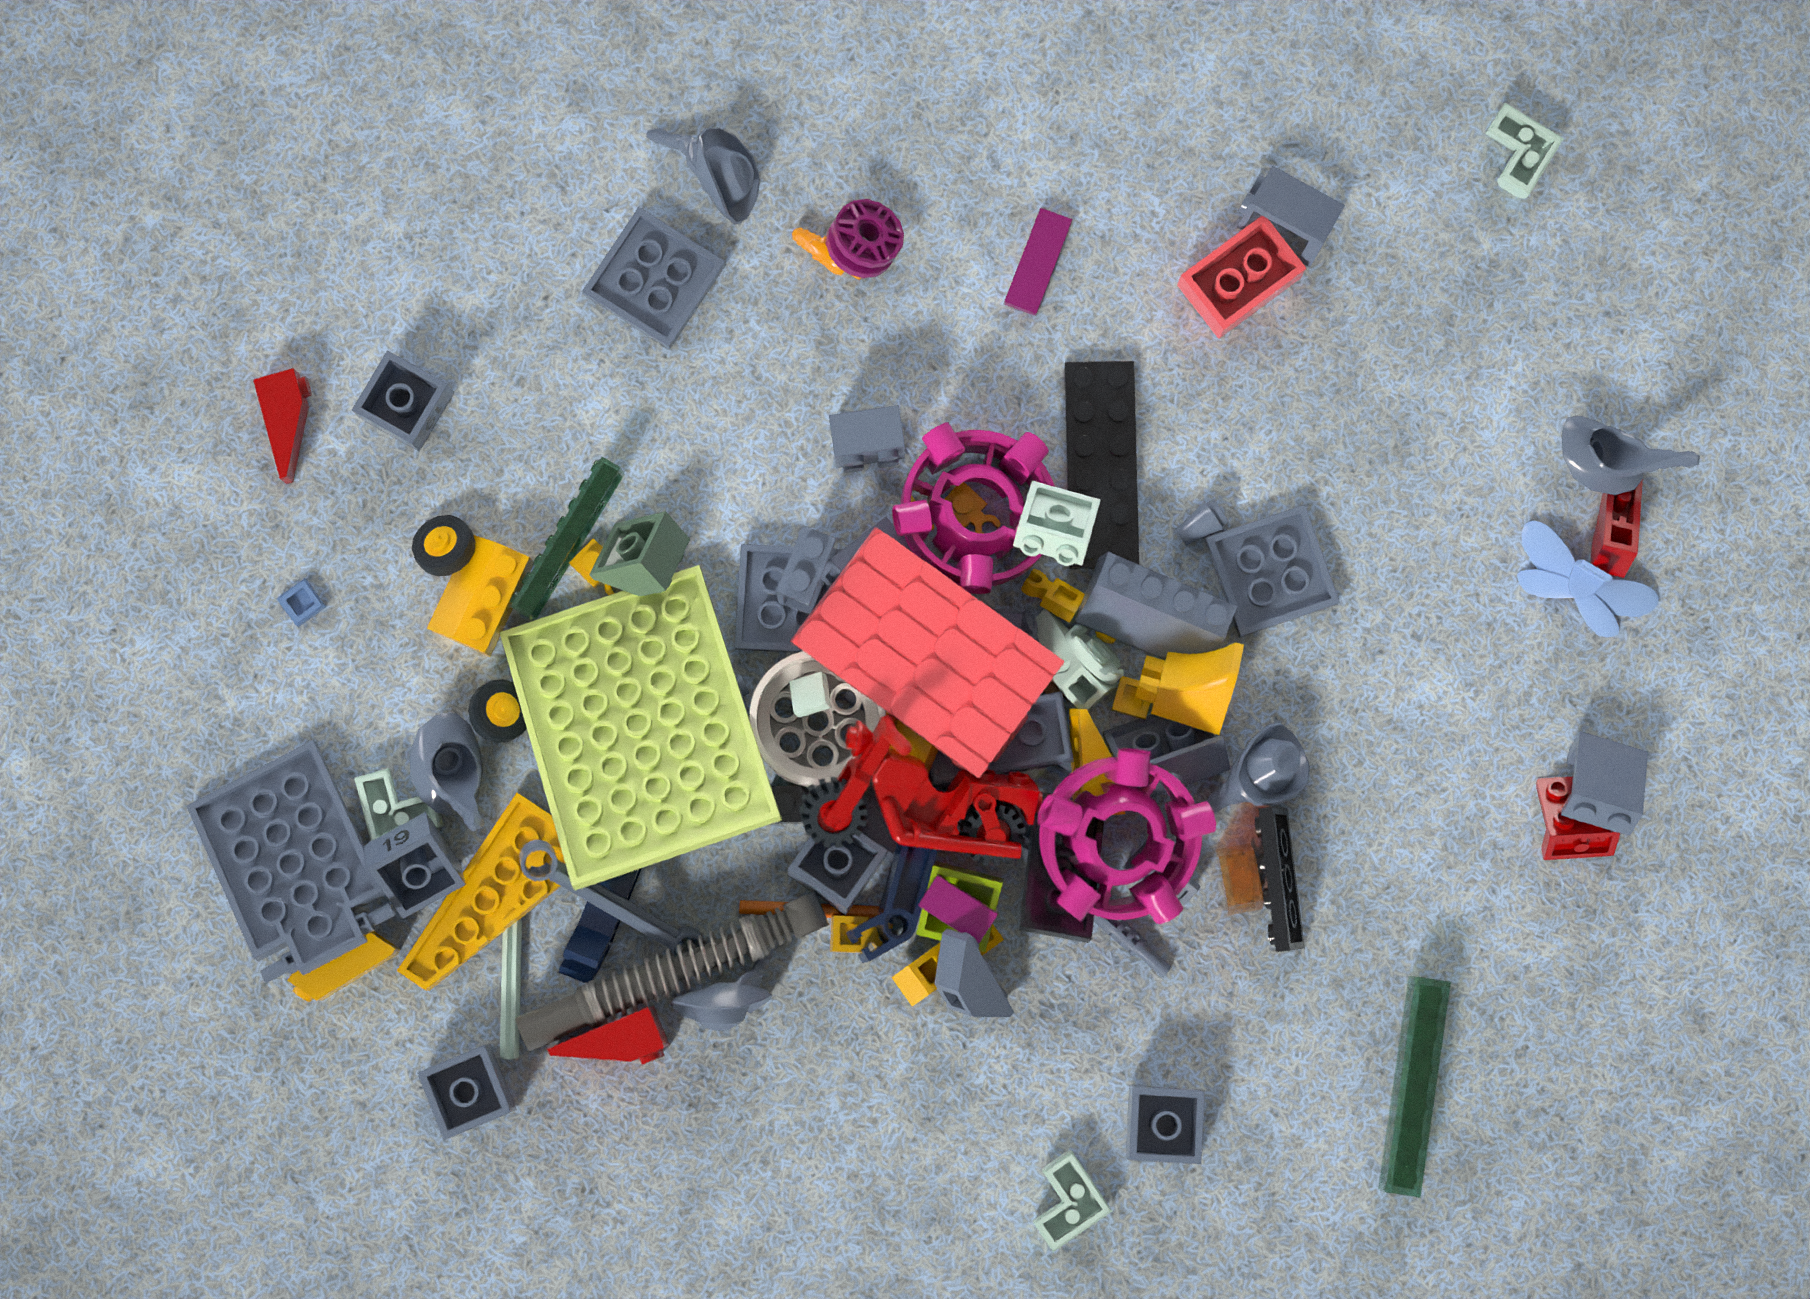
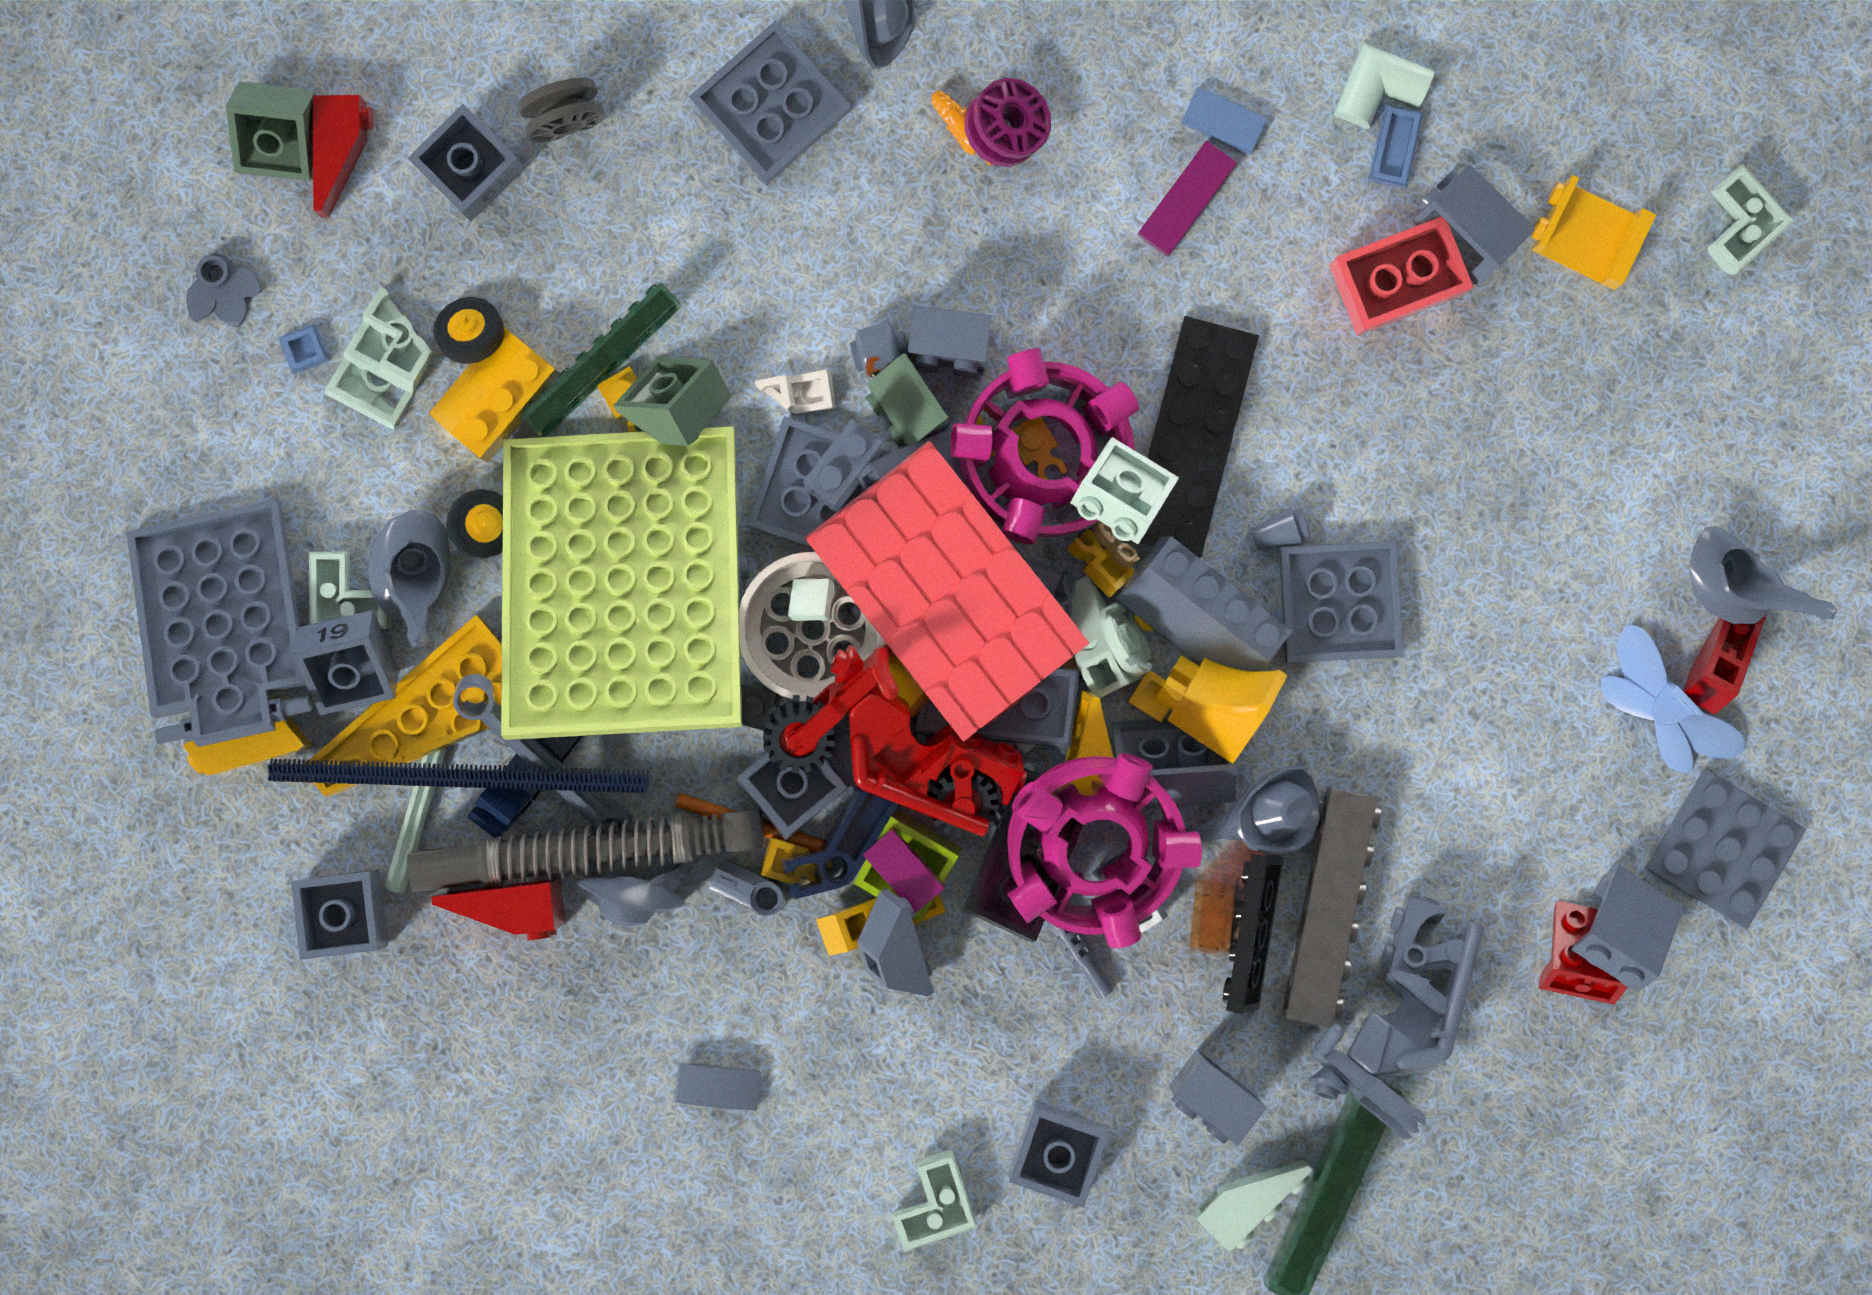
camera: 25 degrees right, 5 degrees up
(219, 575) = (222, 296): none -> sand blue plate
(224, 420) = (271, 130): none -> sand green slope
(375, 583) = (387, 349): none -> light aqua slope
(474, 332) = (561, 109): none -> dark grey wheel
(540, 937) = (457, 777): none -> dark blue axle
(750, 519) = (801, 392): none -> white slope
(807, 464) = (877, 348): none -> sand blue head
(820, 966) = (745, 887): none -> sand blue piece
(844, 502) = (906, 403): none -> sand green slope
(845, 1152) = (717, 1086): none -> sand blue slope
(1050, 187) = (1224, 121): none -> medium blue tile
(1055, 571) = (1122, 553): none -> tan piece
(1172, 111) = (1376, 75): none -> light aqua brick
(1204, 168) = (1395, 146): none -> medium blue tile
(1289, 1033) = (1216, 1097): none -> sand blue brick
(1338, 1126) = (1242, 1204): none -> light aqua slope
(1340, 839) = (1330, 908): none -> flat silver brick
(1393, 197) = (1591, 234): none -> yellow panel
(1446, 929) = (1415, 1035): none -> sand blue piece
(1668, 692) = (1725, 848): none -> sand blue plate

